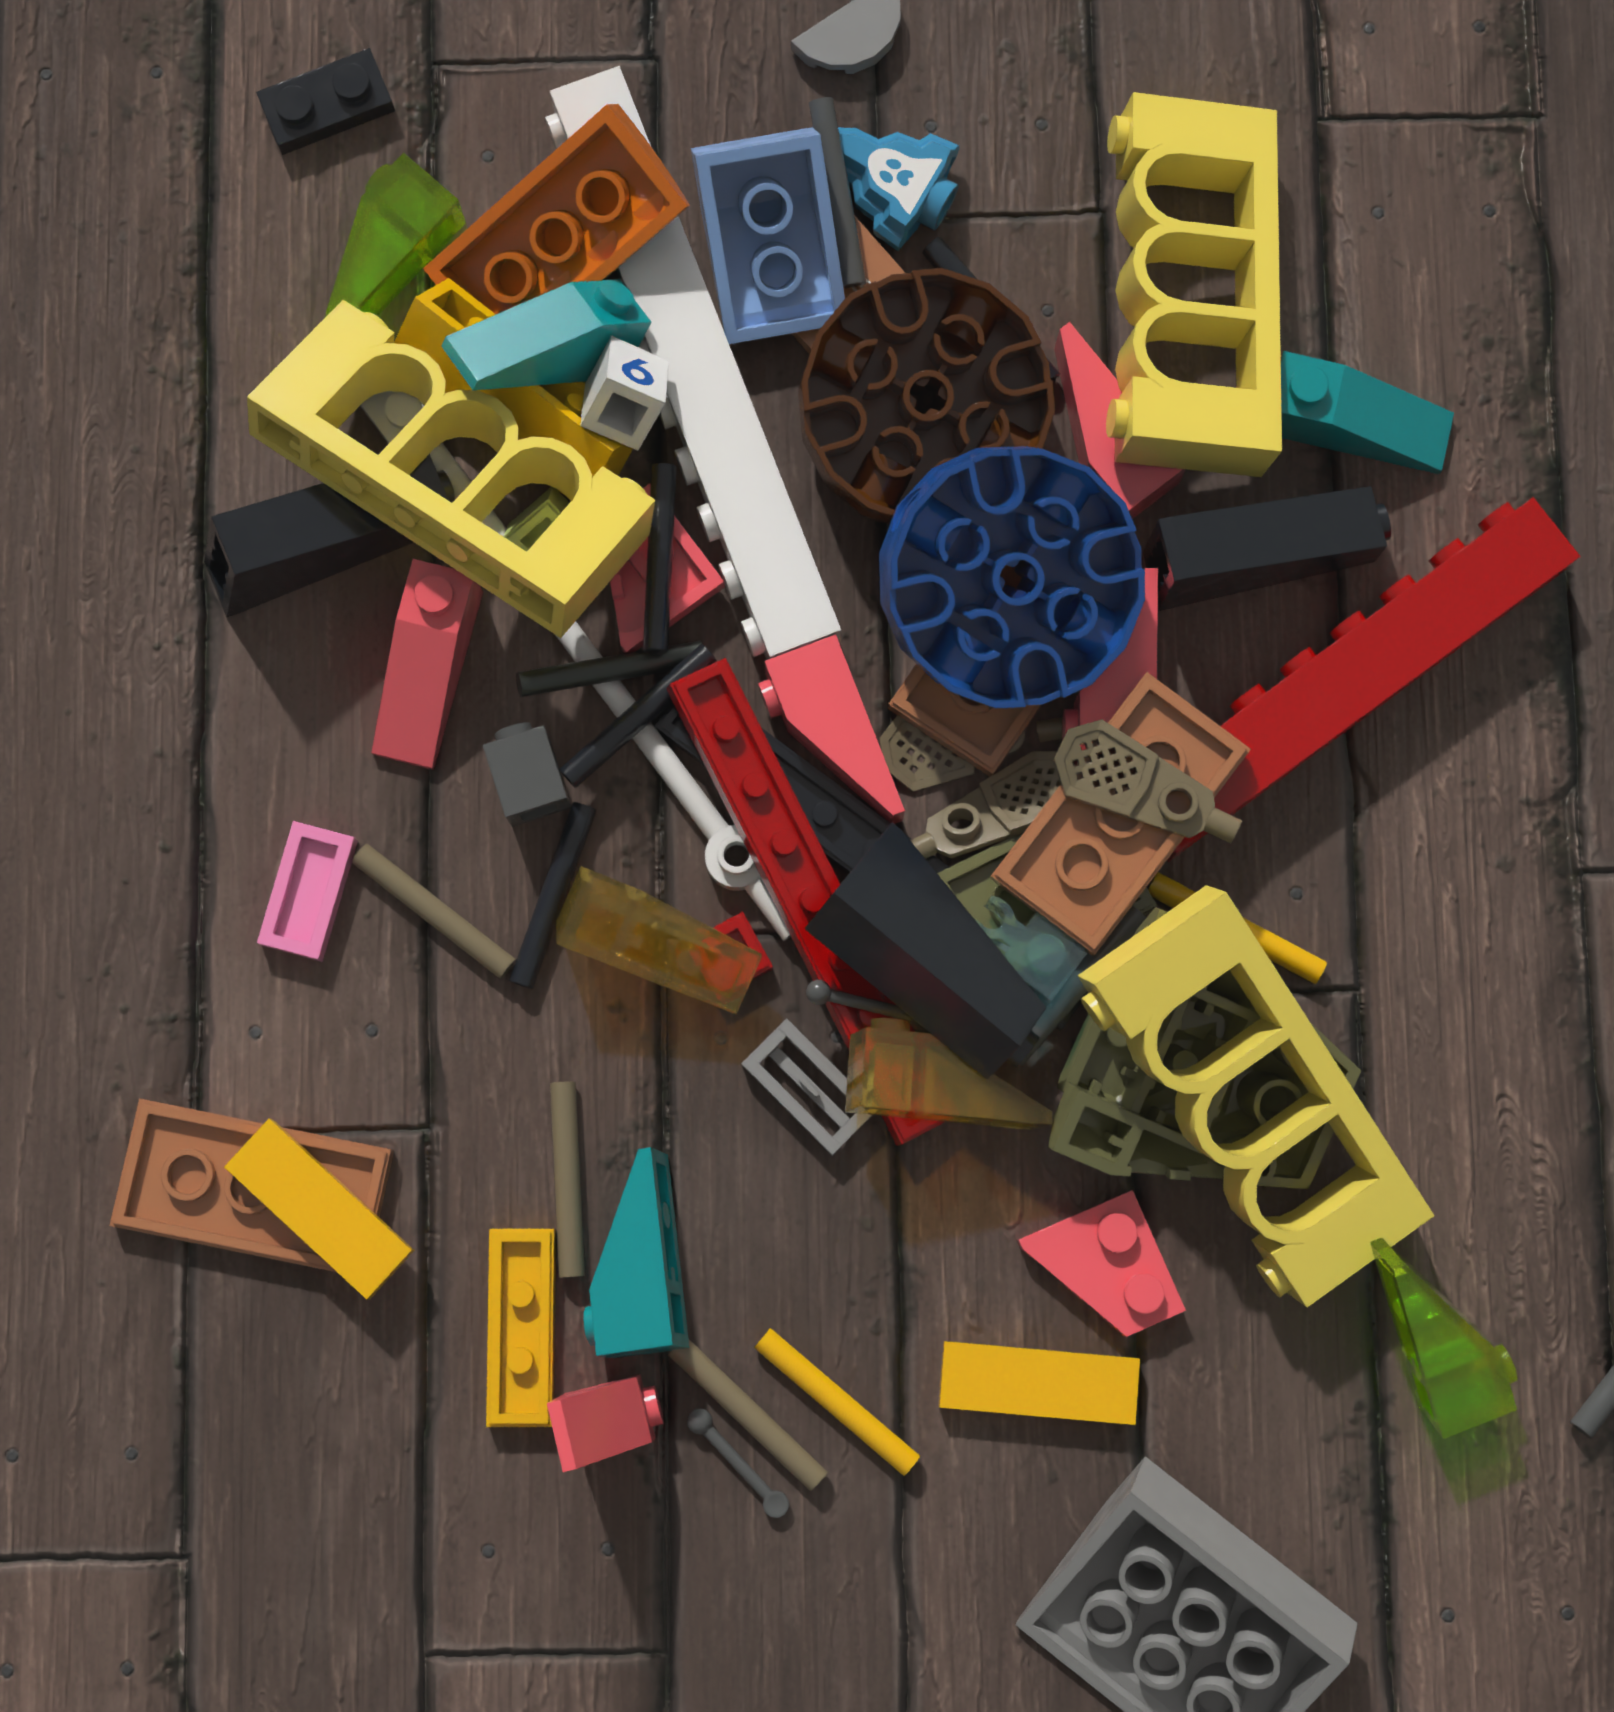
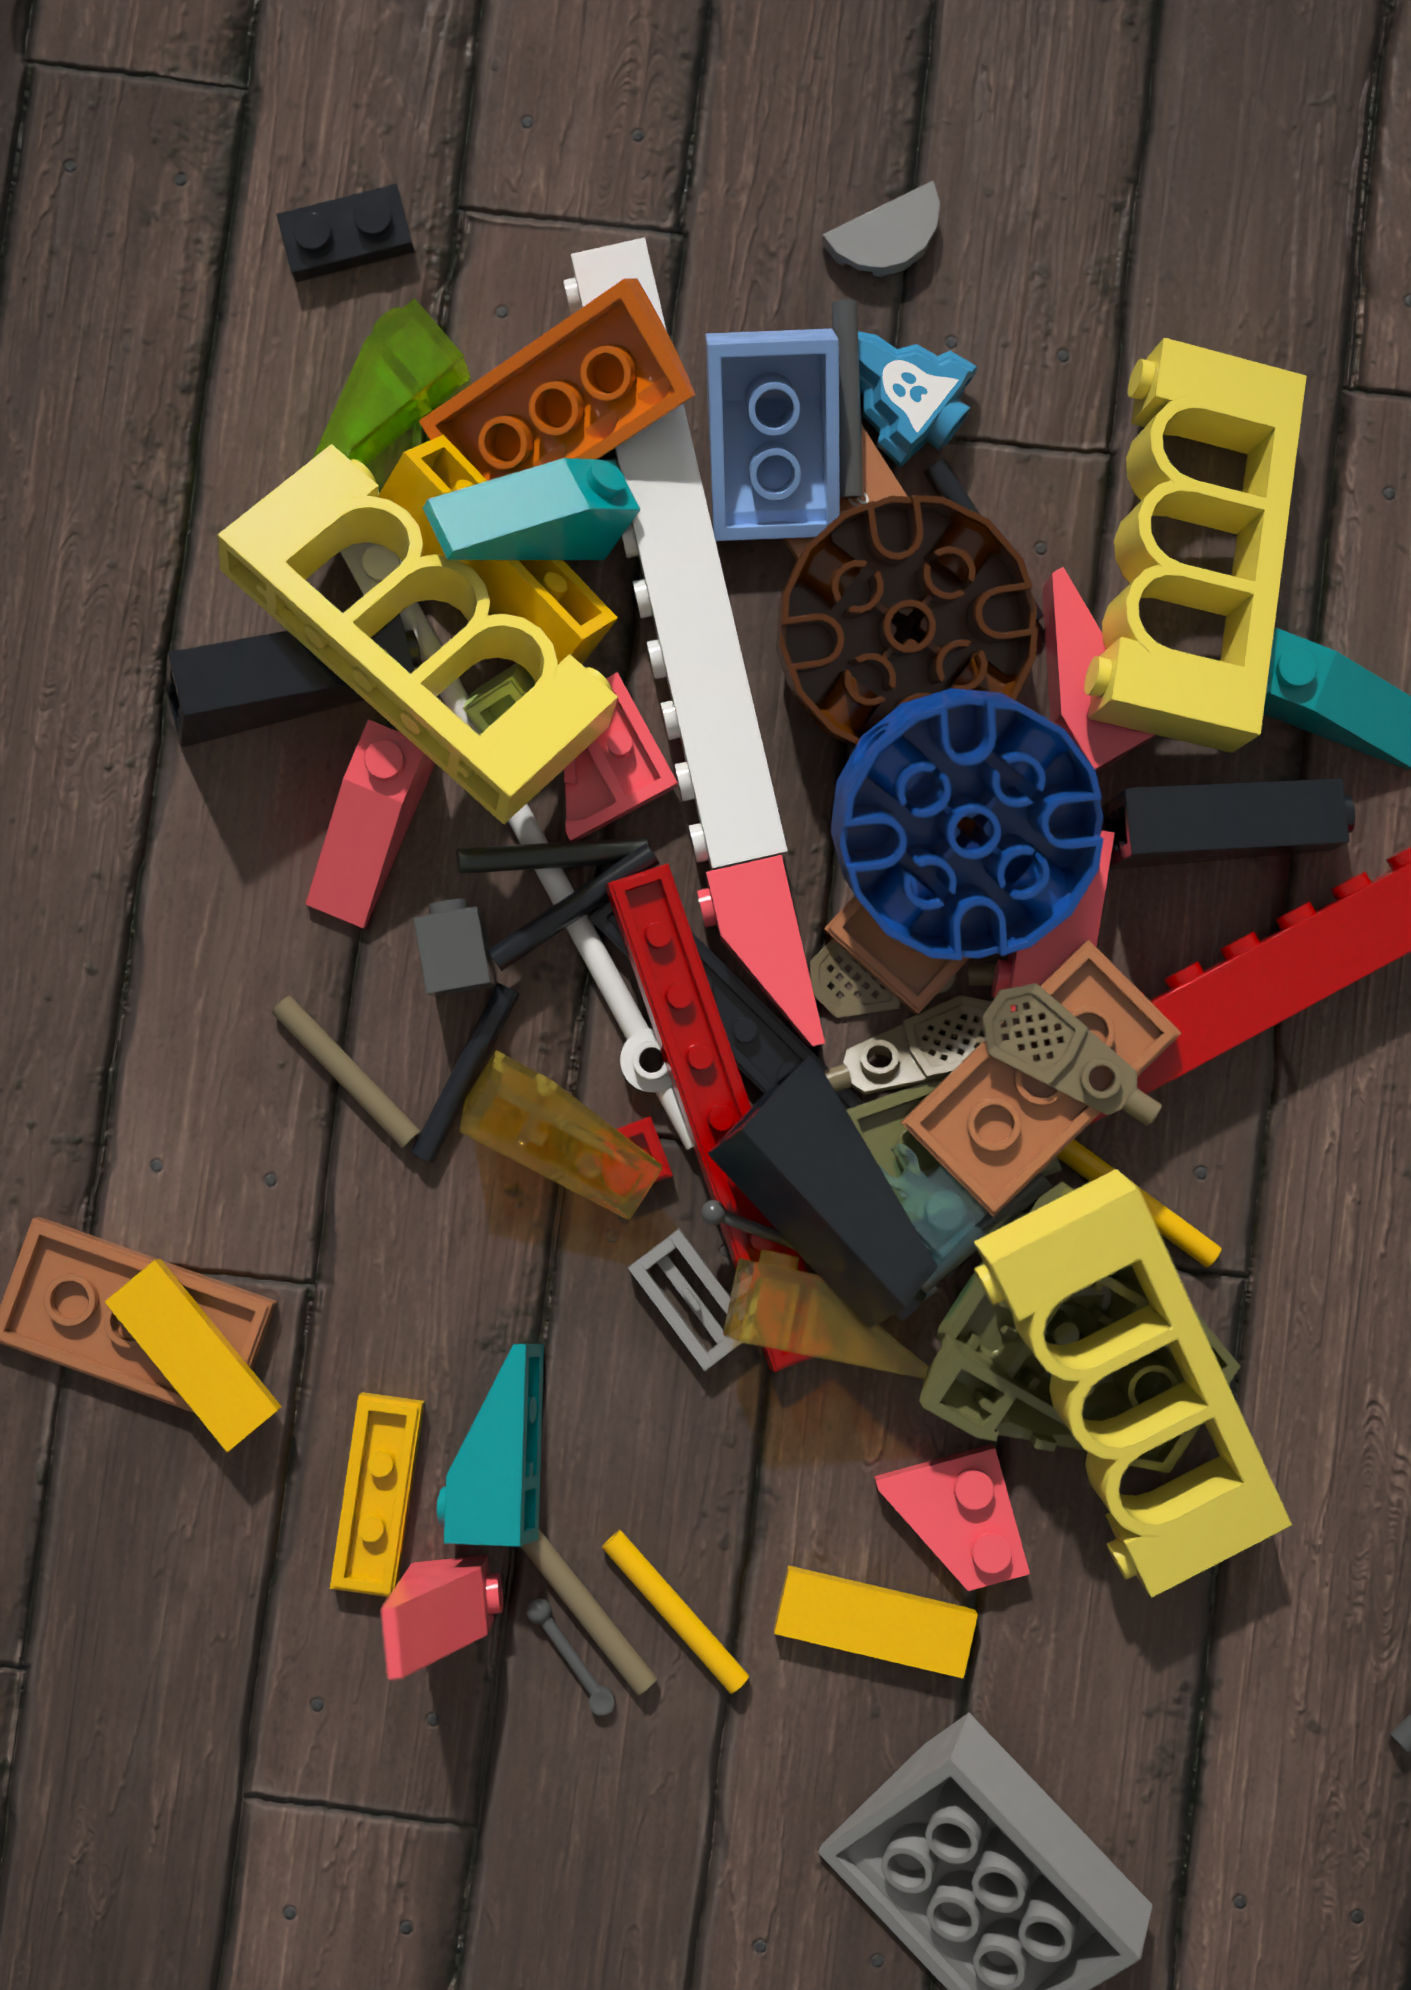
camera: 10 degrees right, 5 degrees up
(307, 891) = (224, 1034): bright pink tile -> none
(567, 1179) = (441, 1356): dark tan piece -> none
(624, 393) = (603, 580): white brick -> none
(659, 560) = (616, 752): black piece -> none
(1450, 1361) = (1282, 1664): clear neon green slope -> none

